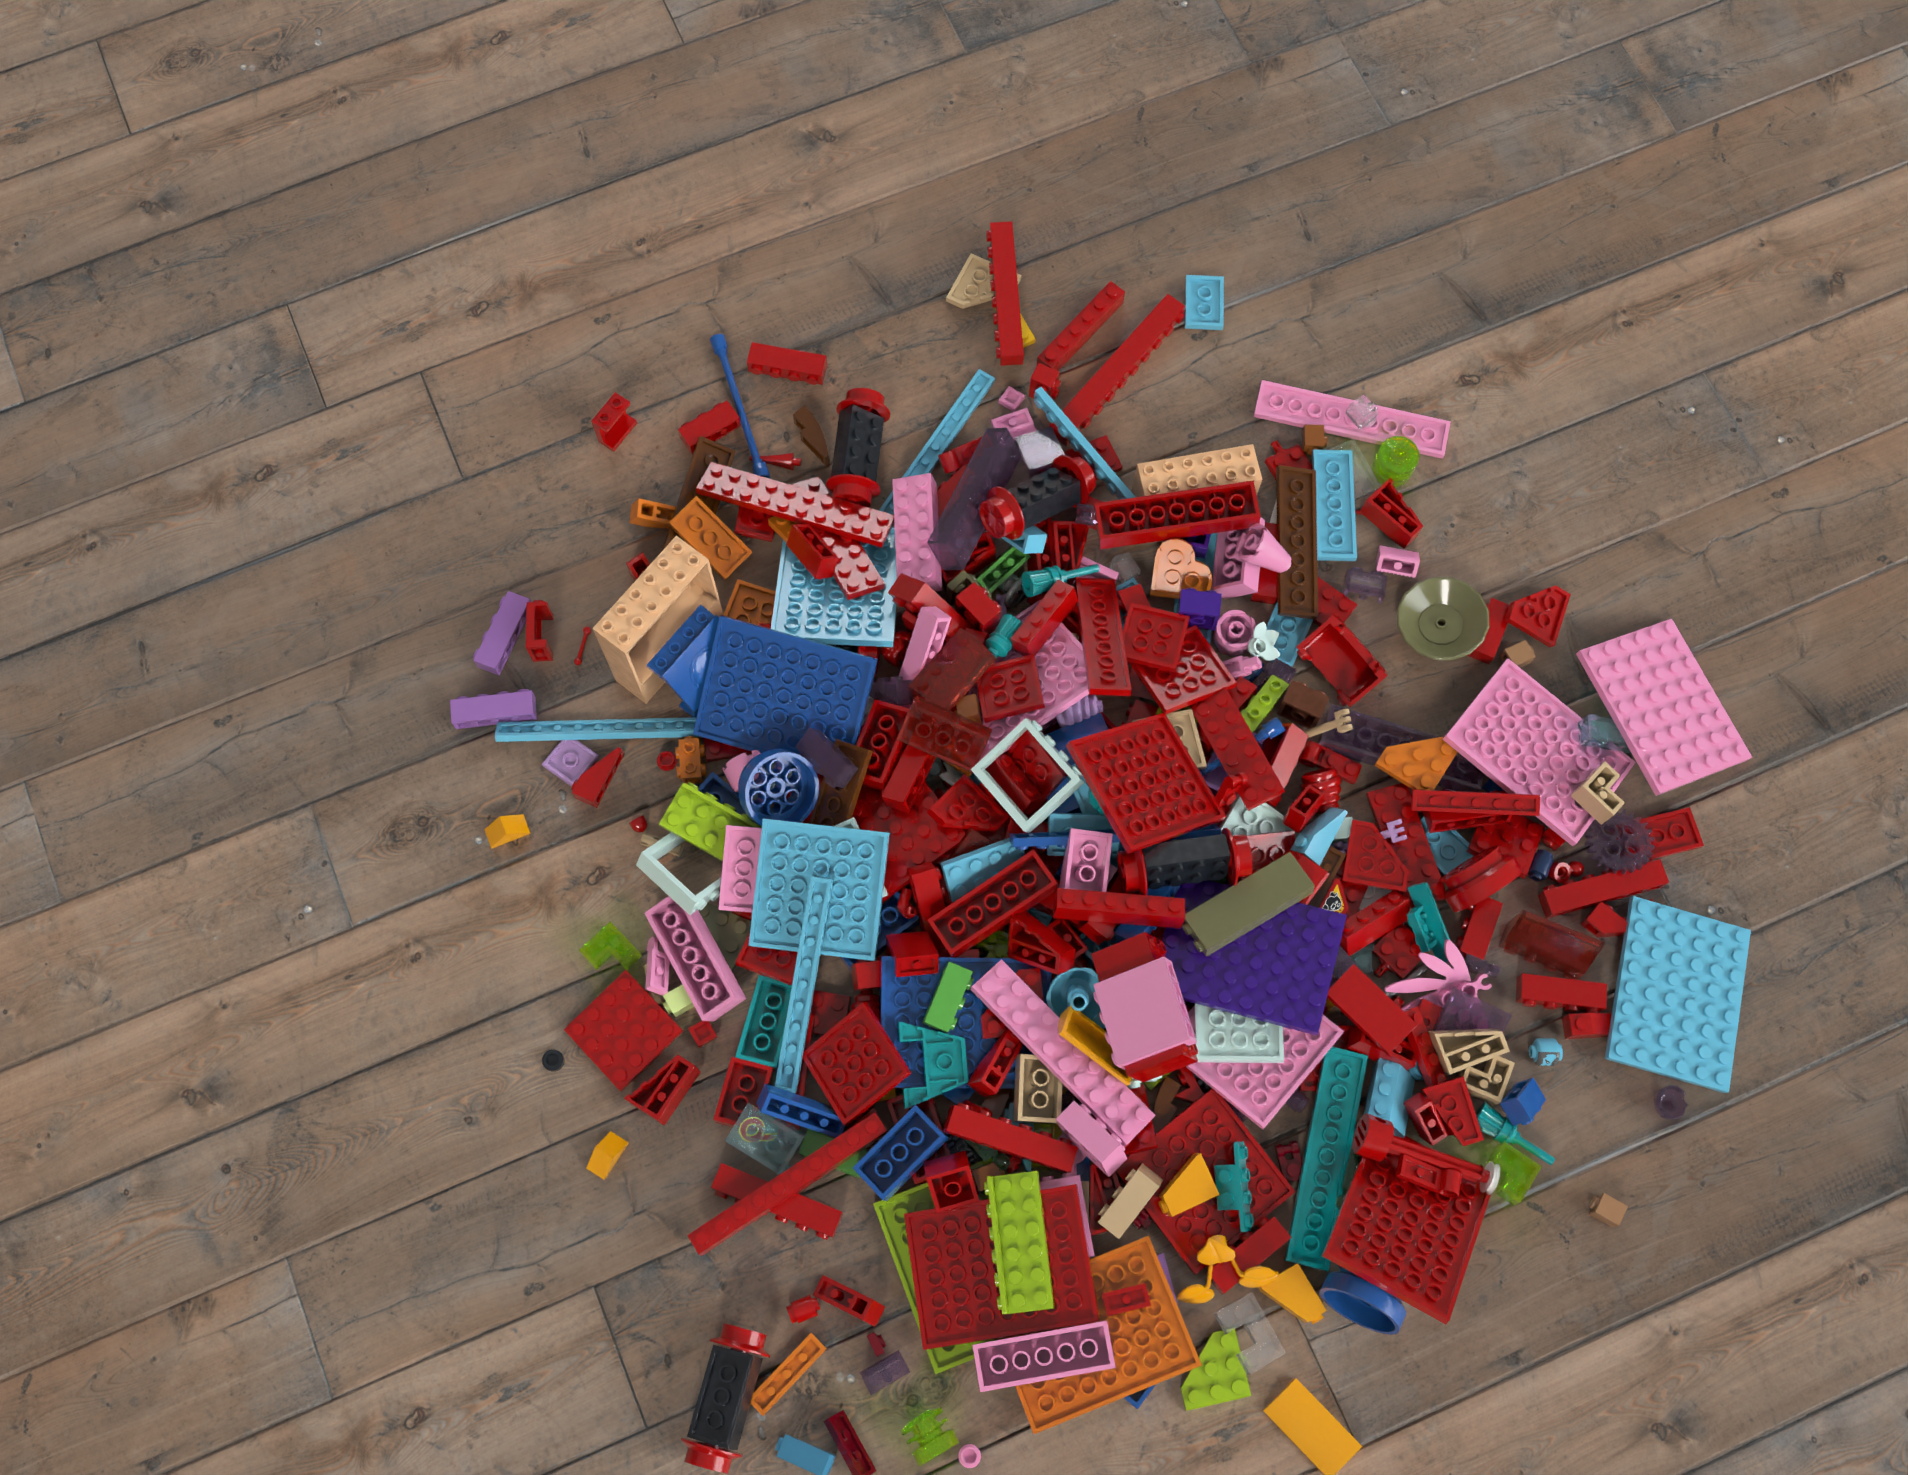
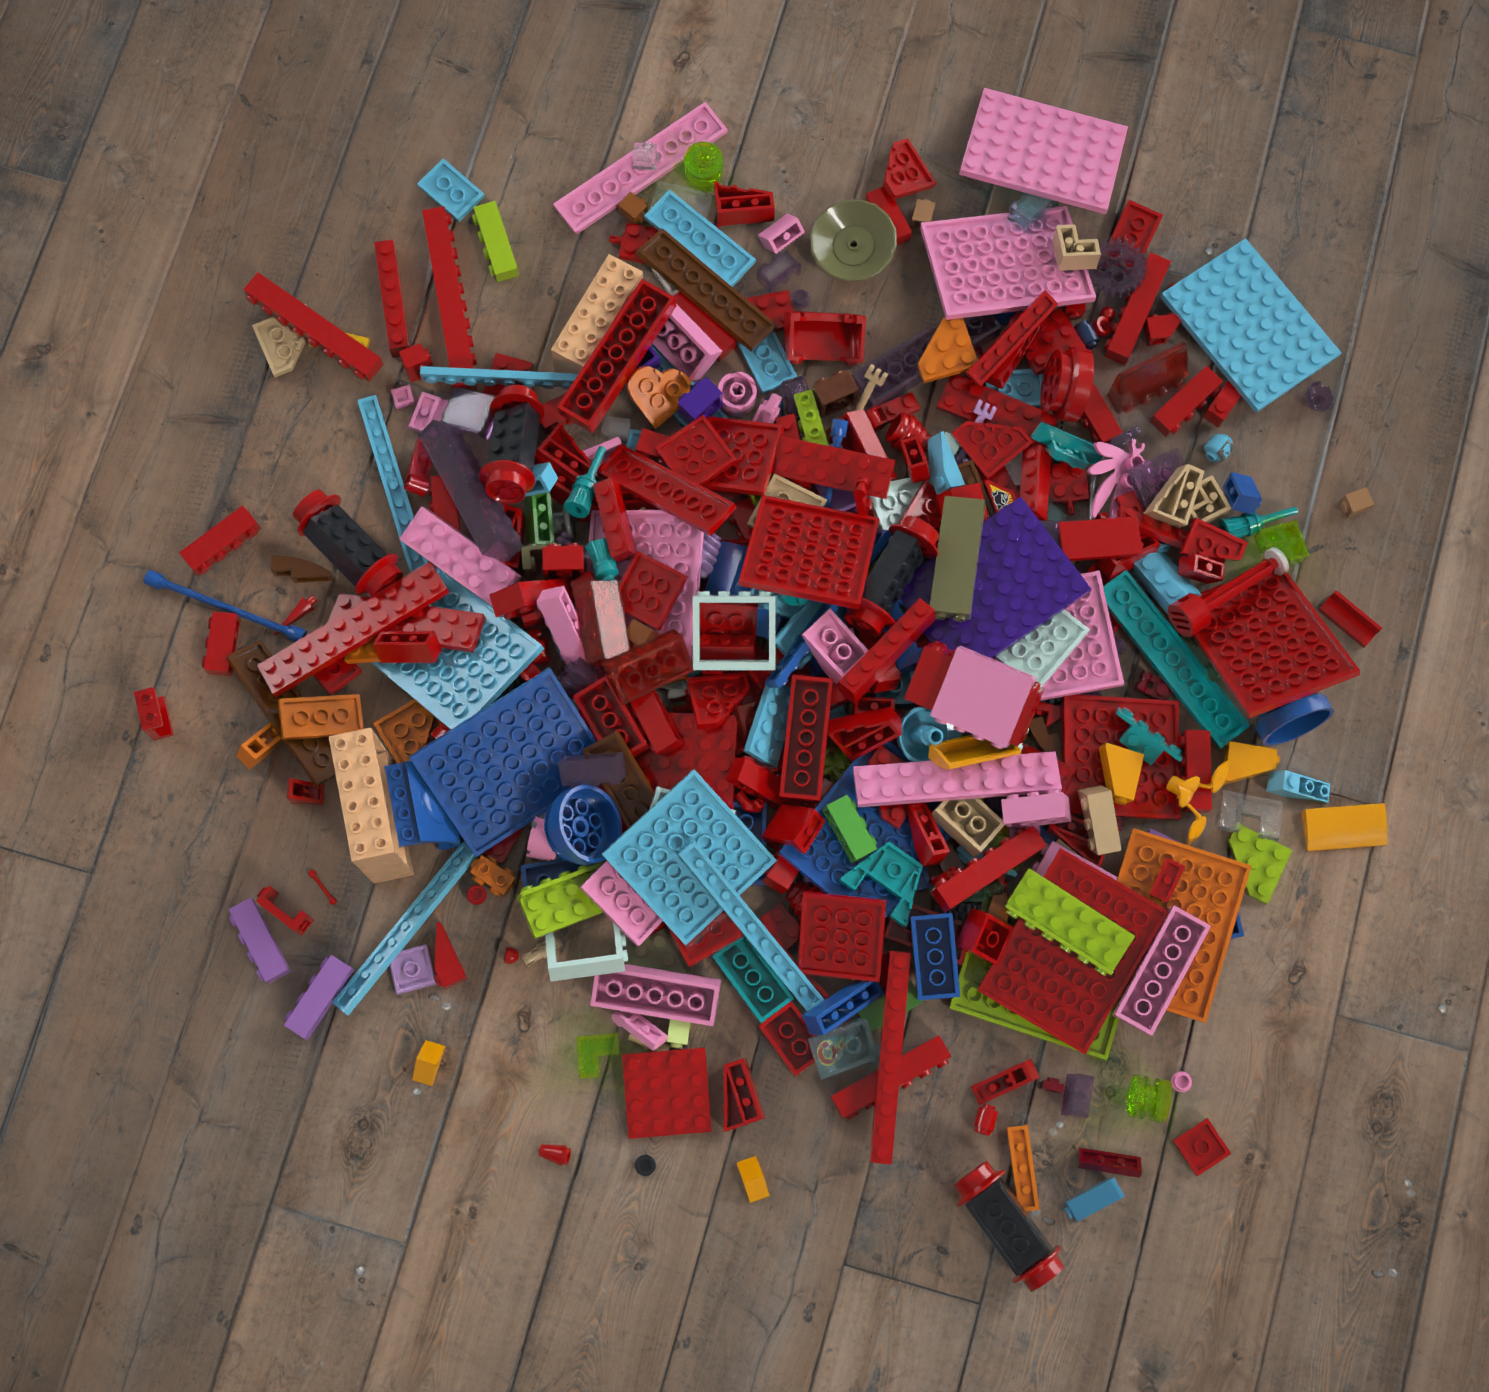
camera: 55 degrees left, 5 degrees up
(508, 983) = (555, 1153): none -> red cone
(702, 1033) = (718, 1034): red plate -> none
(1085, 514) = (553, 421): plate -> none
(1193, 365) = (495, 240): none -> lime brick
(1262, 549) = (697, 318): bright pink cone -> none
(1265, 642) = (763, 381): light aqua plate -> none
(1311, 1357) = (1297, 786): none -> medium azure slope
(1359, 619) = (800, 298): none -> clear purple plate
(1444, 1182) = (1245, 601): red plate -> none
(1499, 1286) = (1349, 618): none -> red panel

